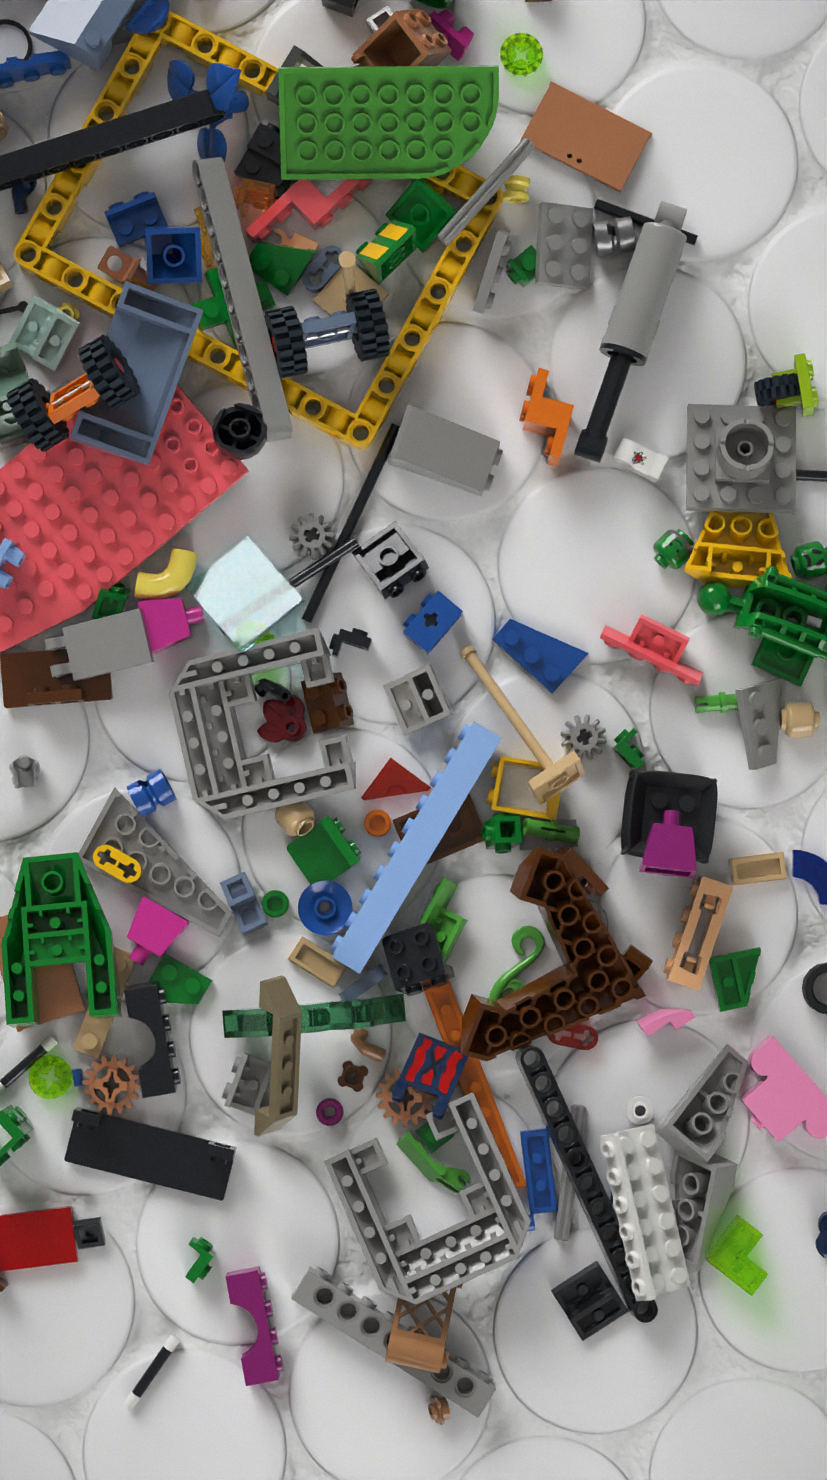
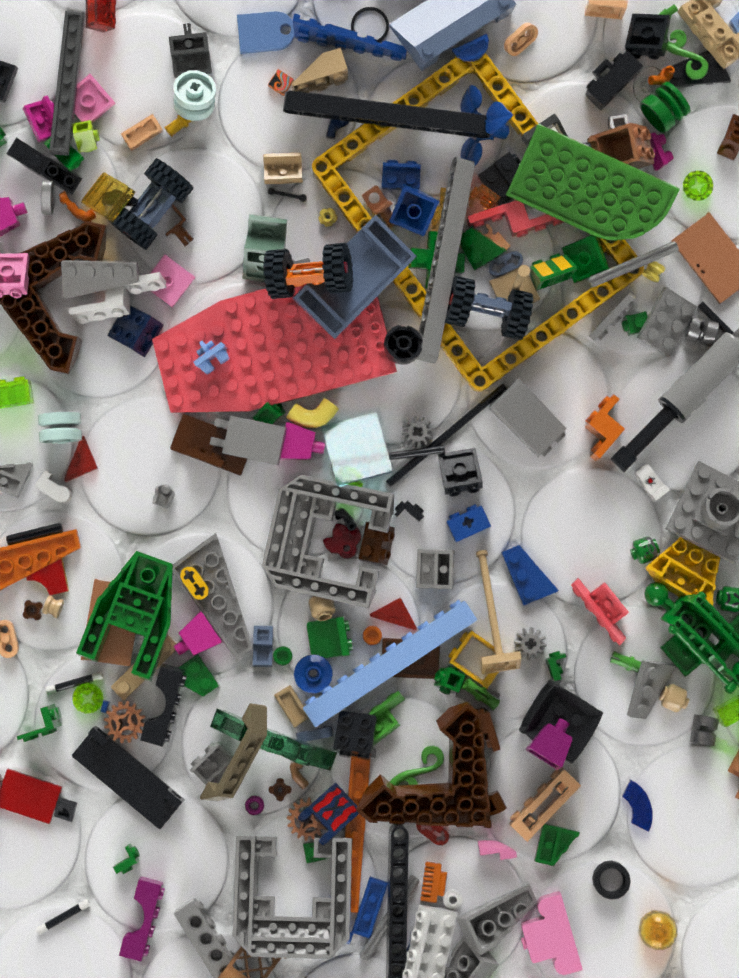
camera: 30 degrees right, 0 degrees up
(44, 332) = (308, 221): light aqua slope -> none
(150, 793) = (237, 547): blue wheel -> none
(429, 1168) = (301, 873): bright green arm -> none
(611, 1100) = (438, 882): none -> orange piece
(757, 868) = (602, 780): tan tile -> none

